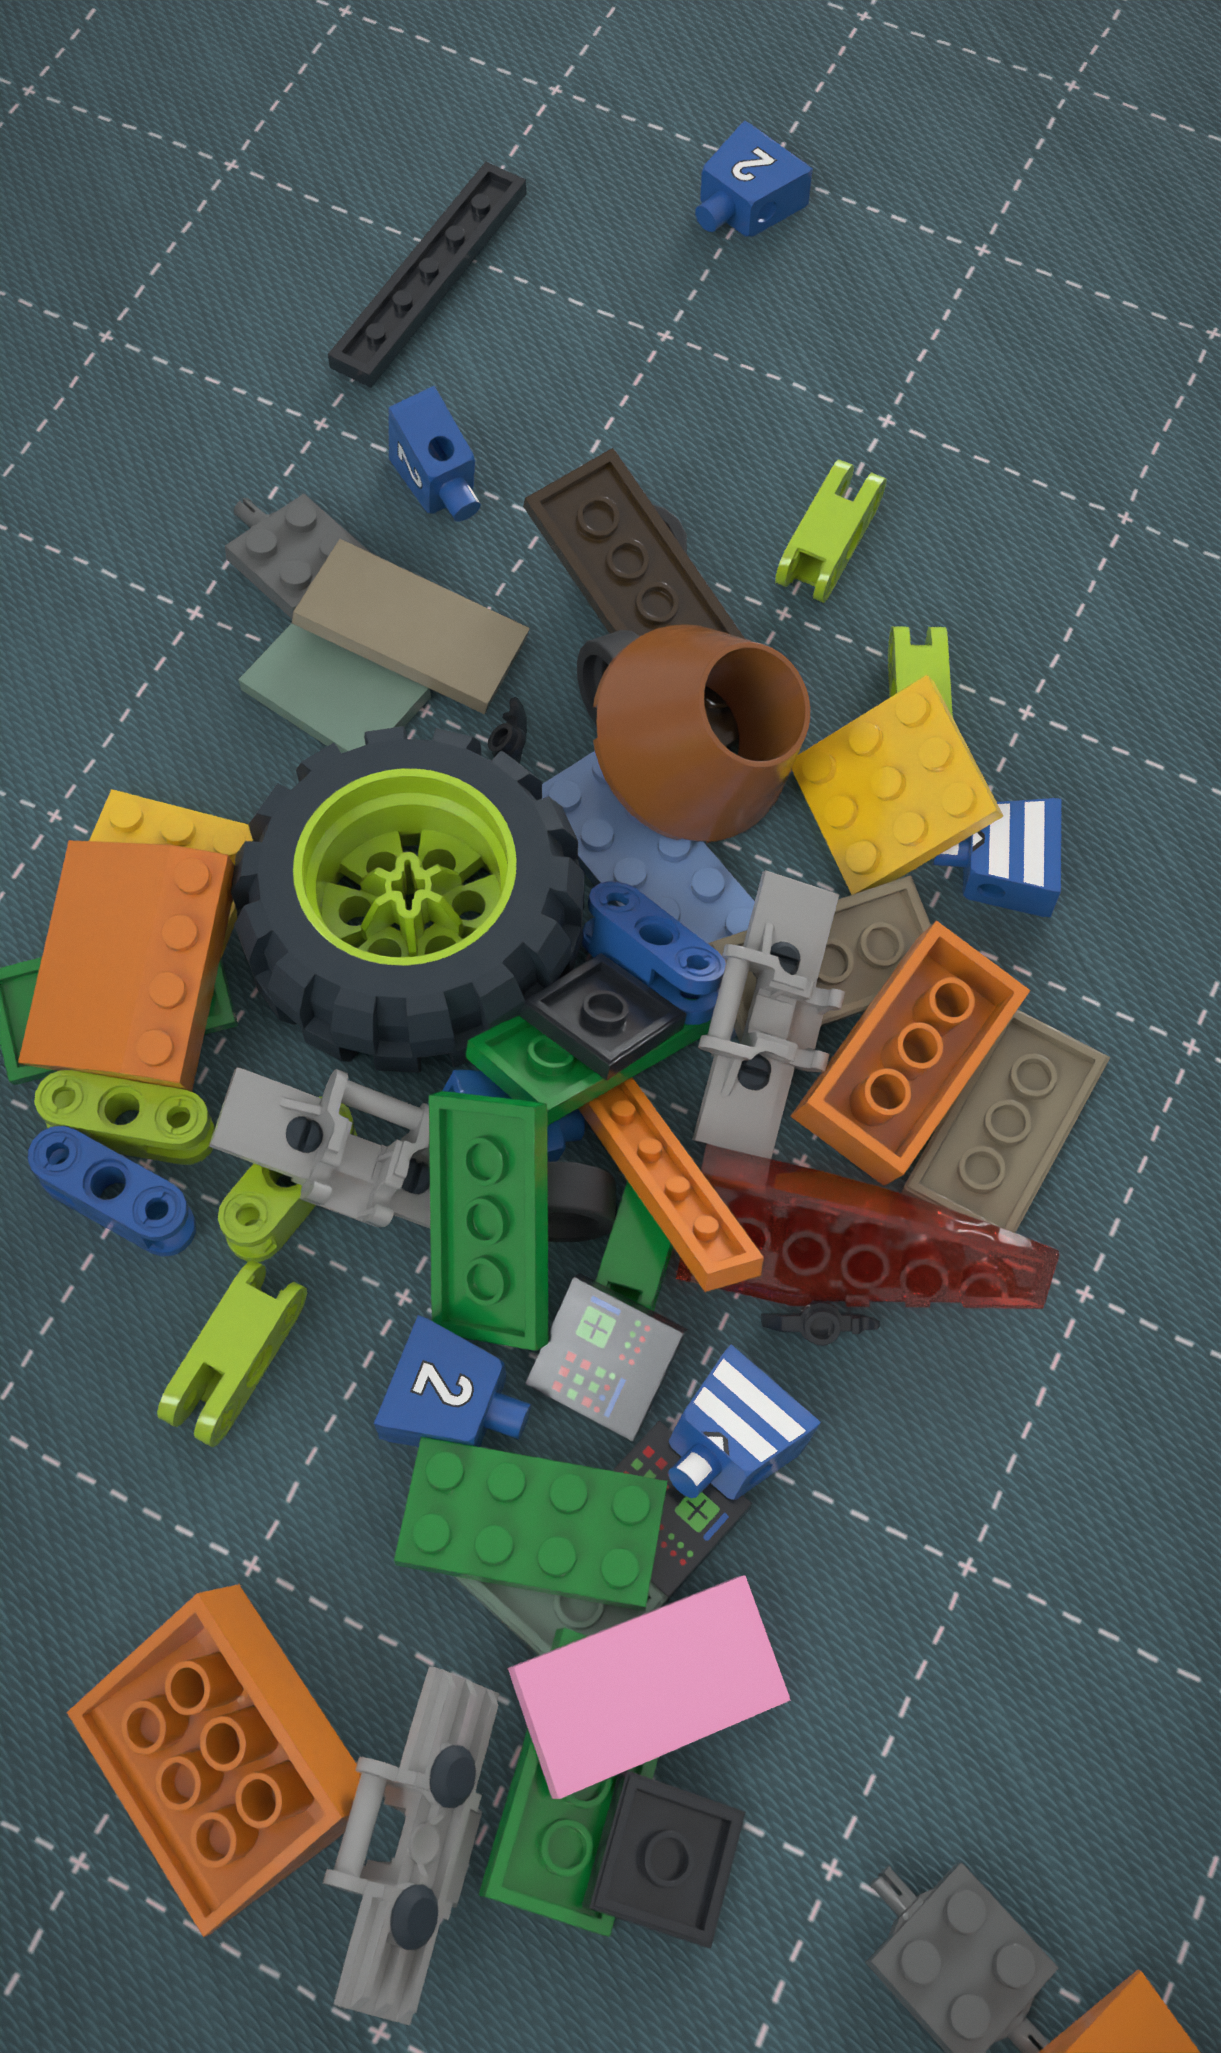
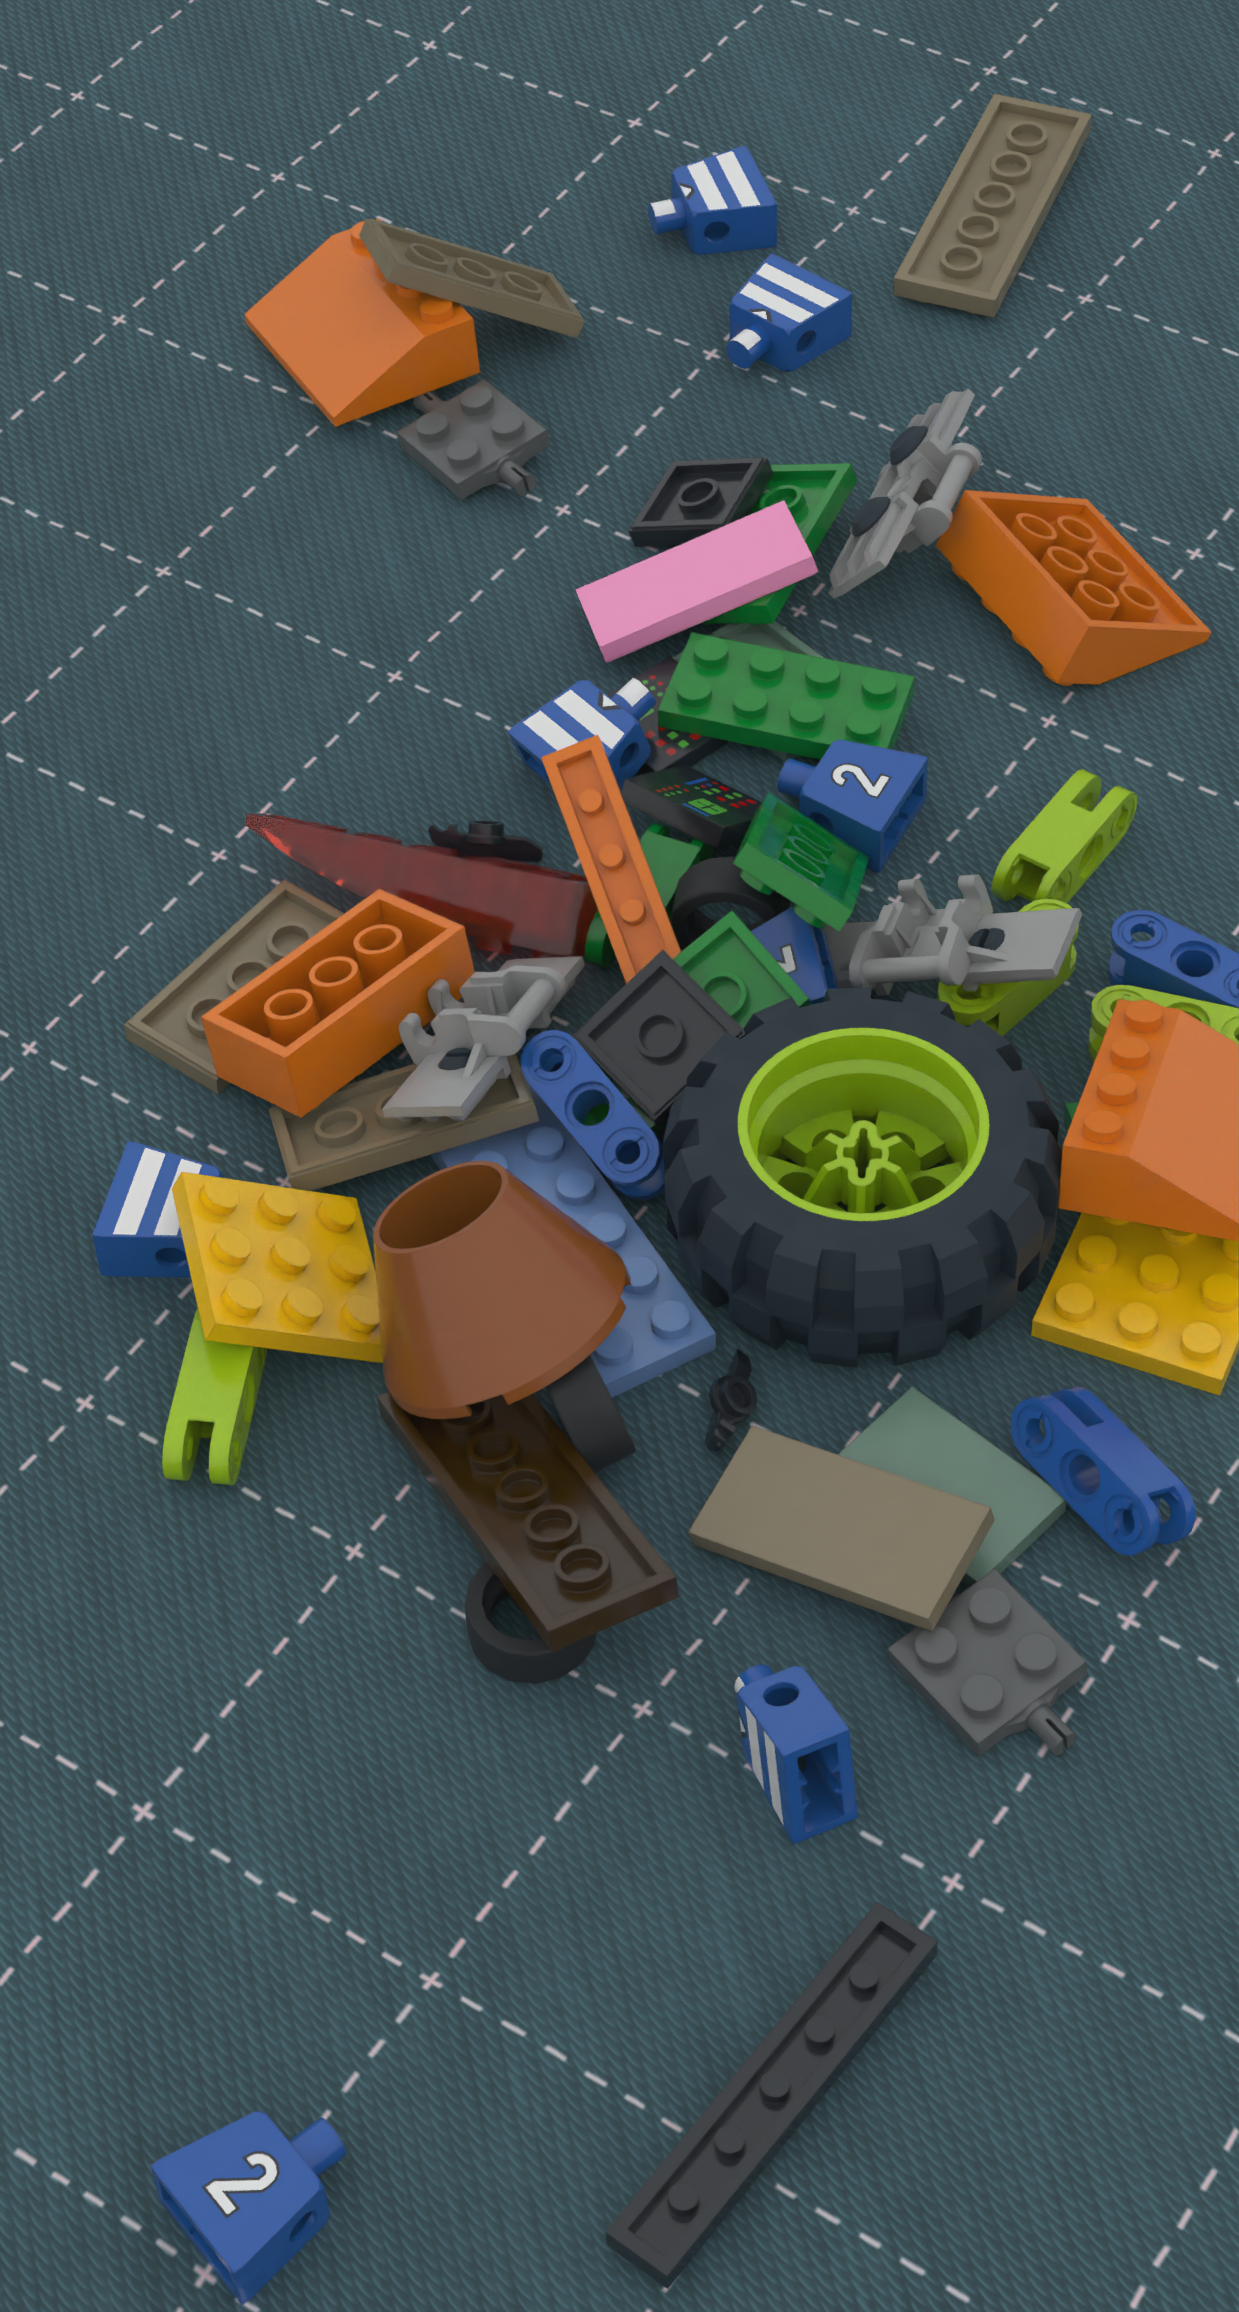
camera: 170 degrees left, 15 degrees down
(209, 688) = (1102, 1470): none -> blue piece
(830, 531) = (267, 1620): lime piece -> none

